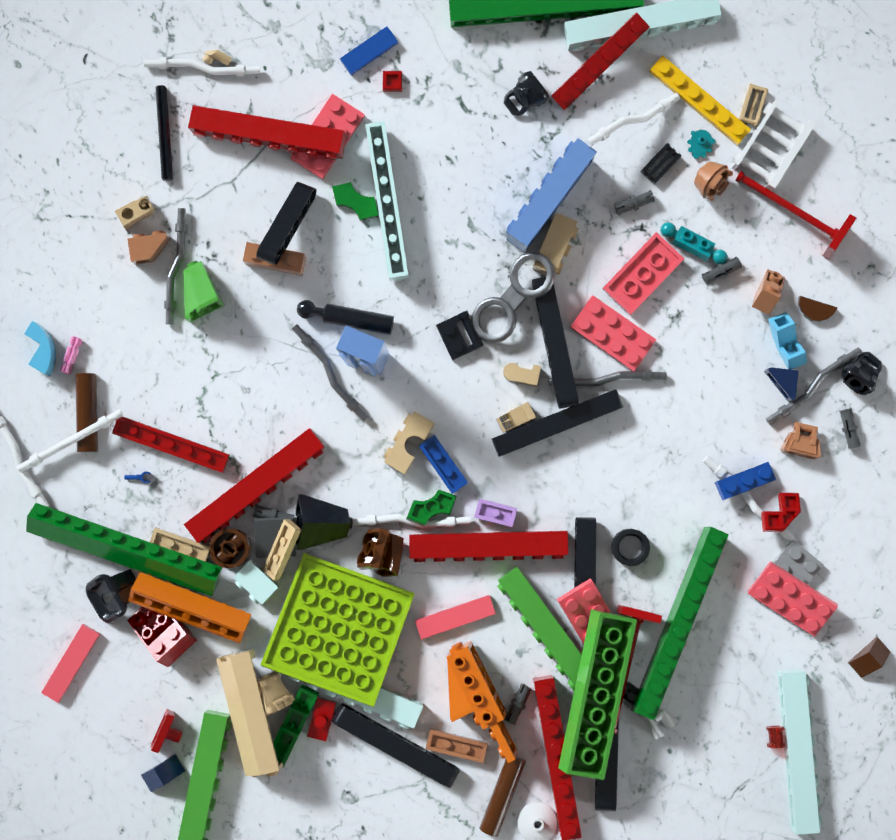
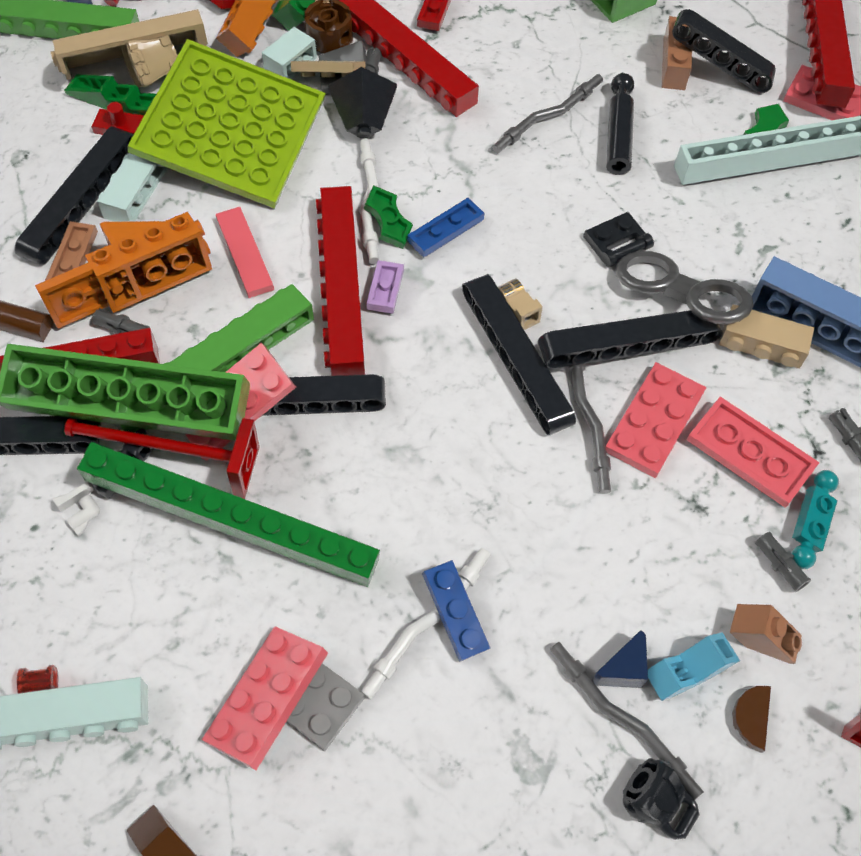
camera: 85 degrees right, 25 degrees down
(362, 351) = (583, 91): medium blue brick -> none
(381, 552) = (327, 159): reddish brown piece -> none
(415, 427) = (454, 179): tan arch -> none
(514, 373) = (578, 304): tan leg -> none
(645, 547) = (338, 433): black tyre -> none
(788, 510) = (393, 664): red tile -> none
(801, 444) = (523, 701): nougat piece -> none
(850, 428) = (561, 784): dark grey pin -> none

